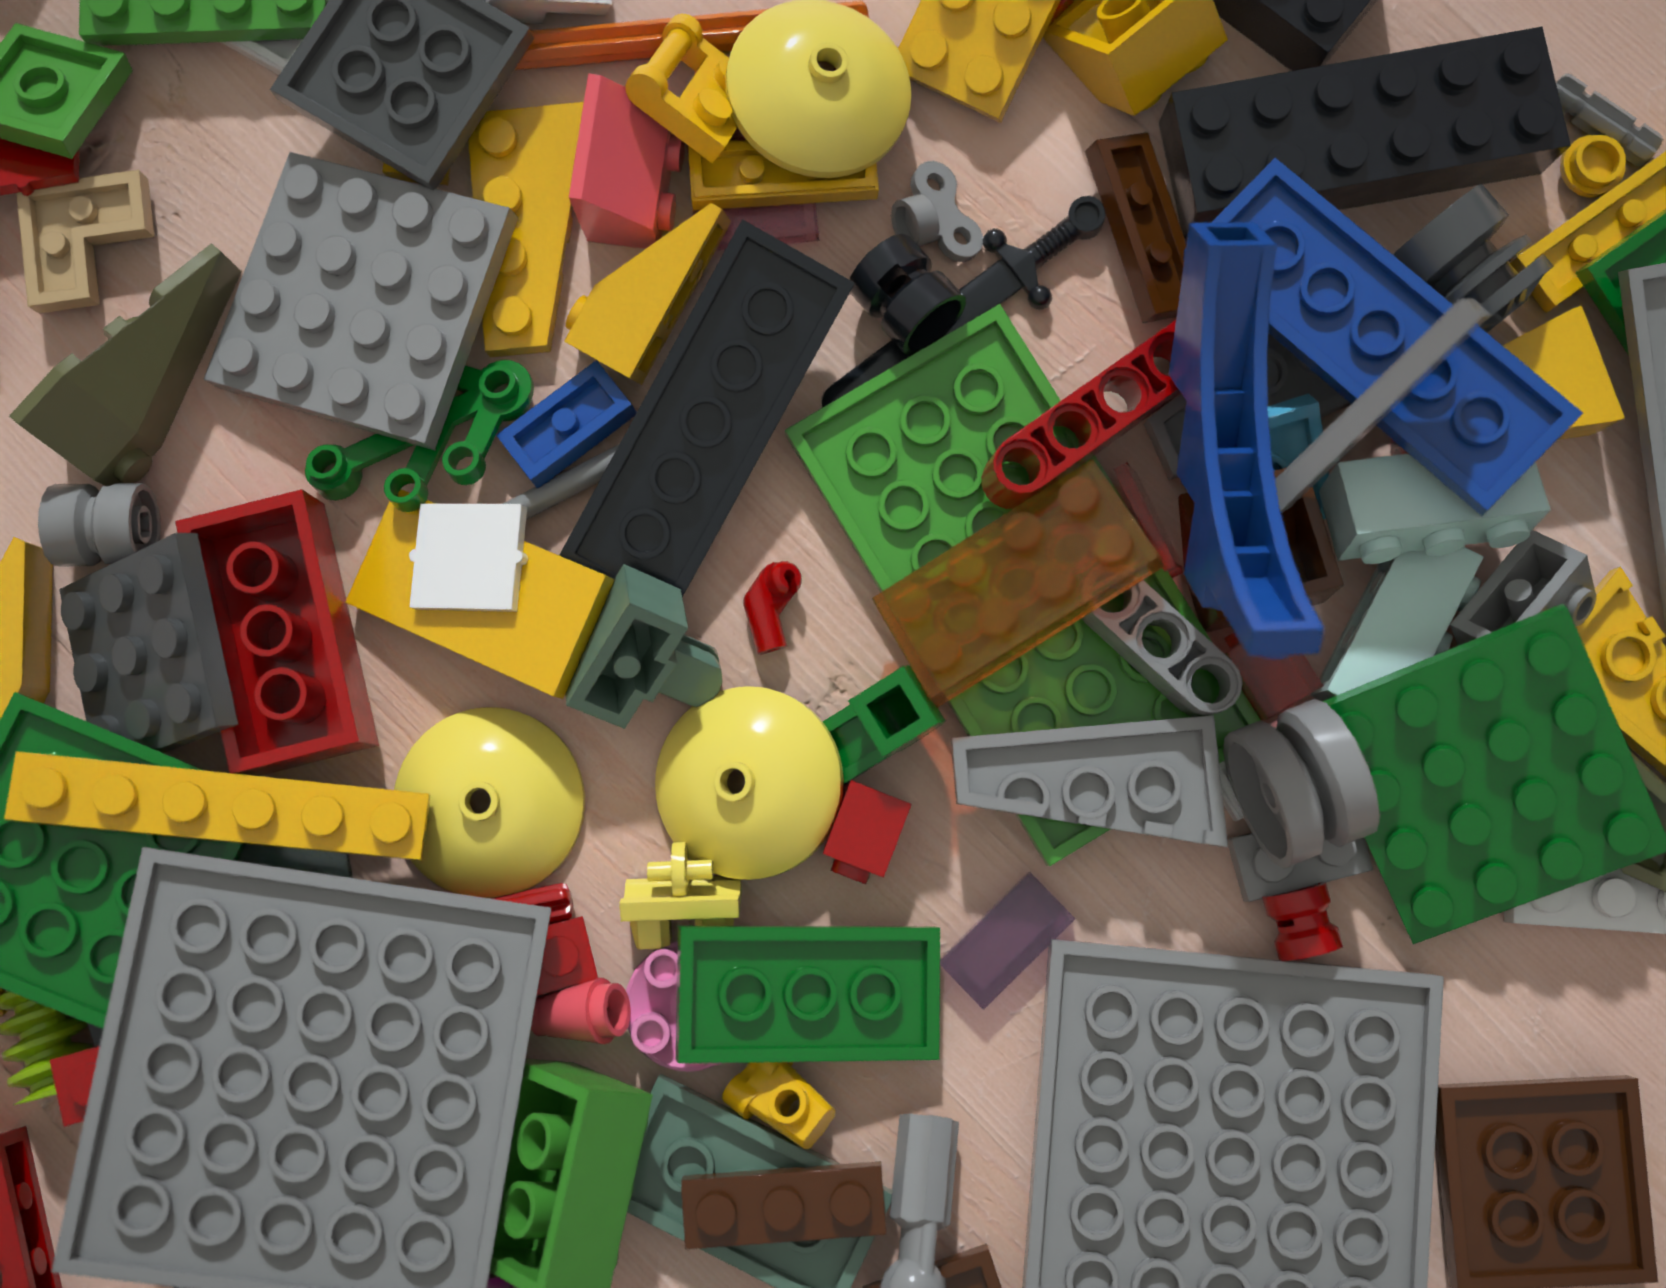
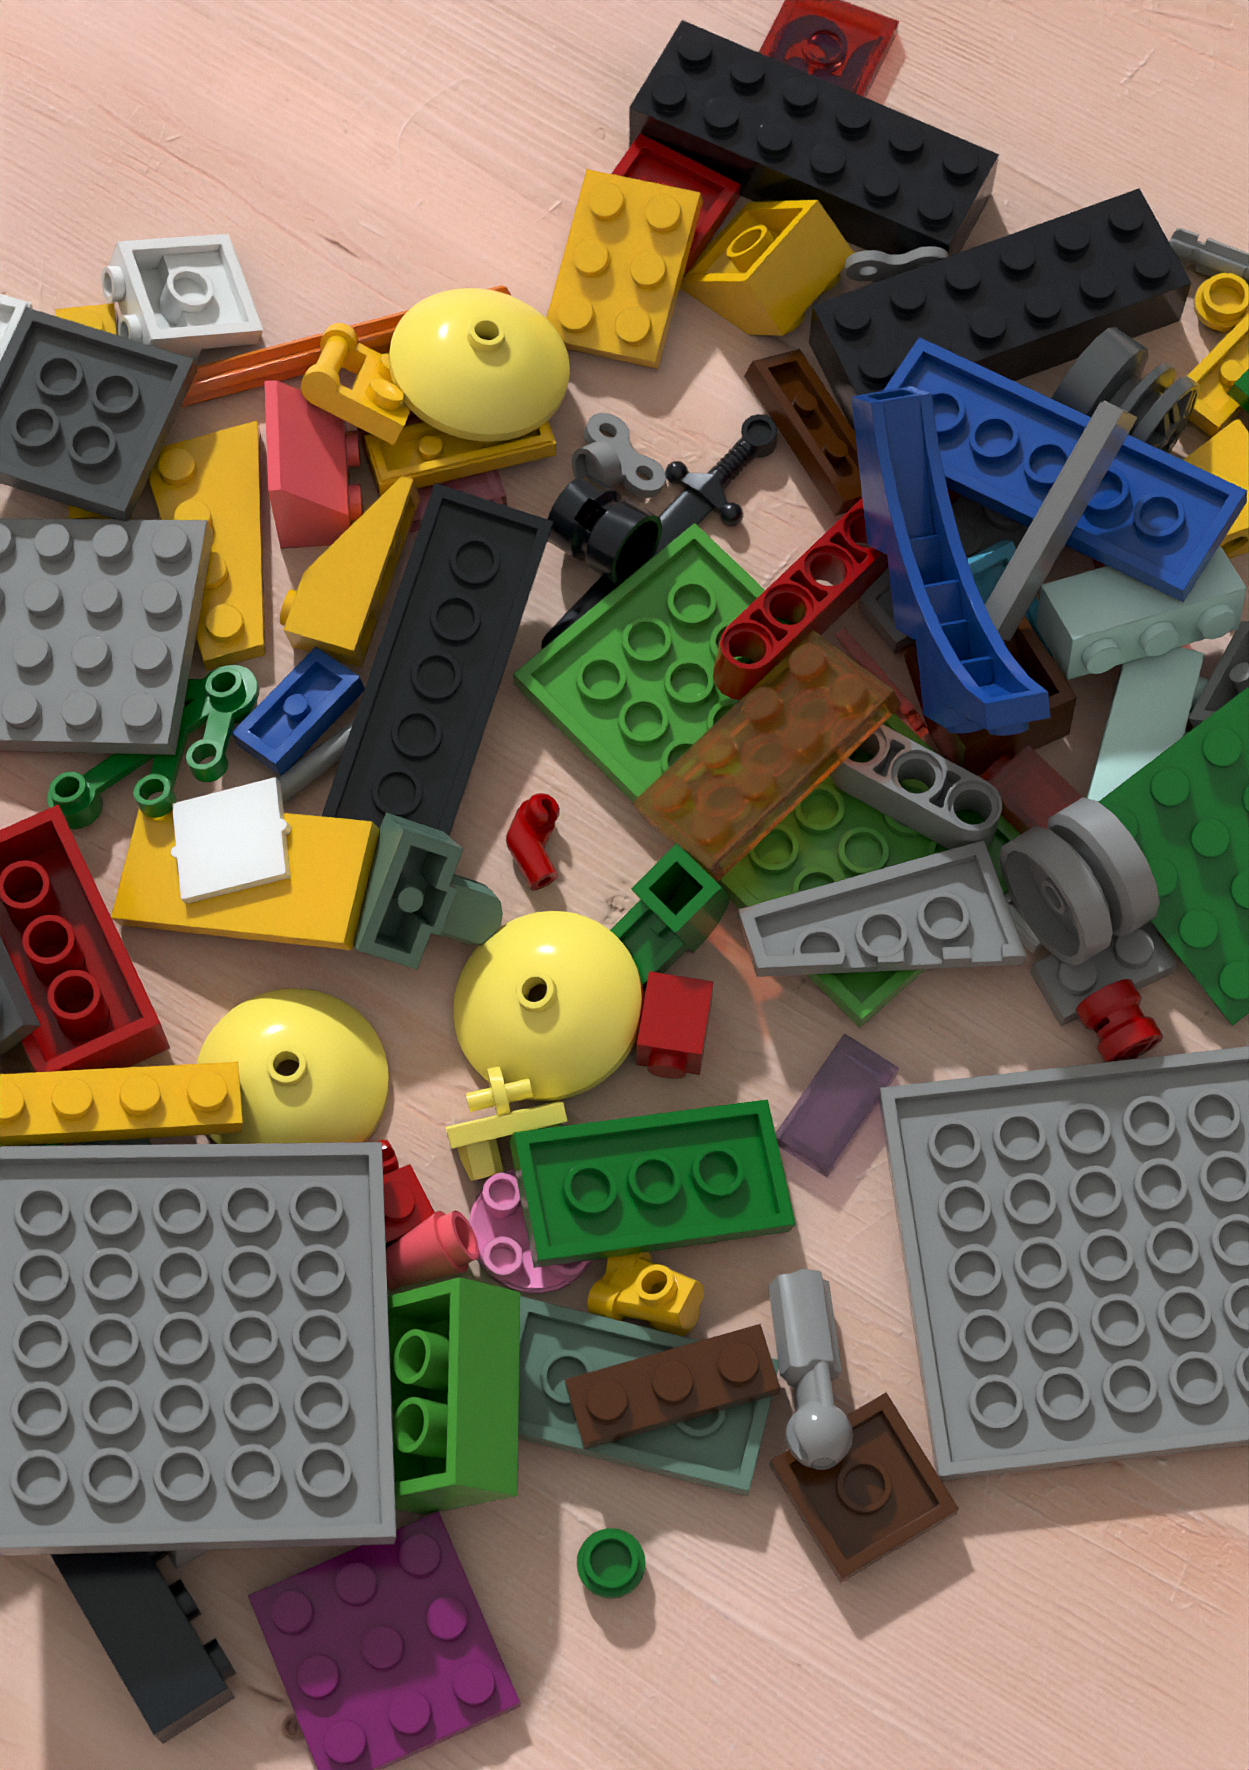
camera: 15 degrees left, 15 degrees down
(1255, 61) = (877, 265): none -> light grey piece

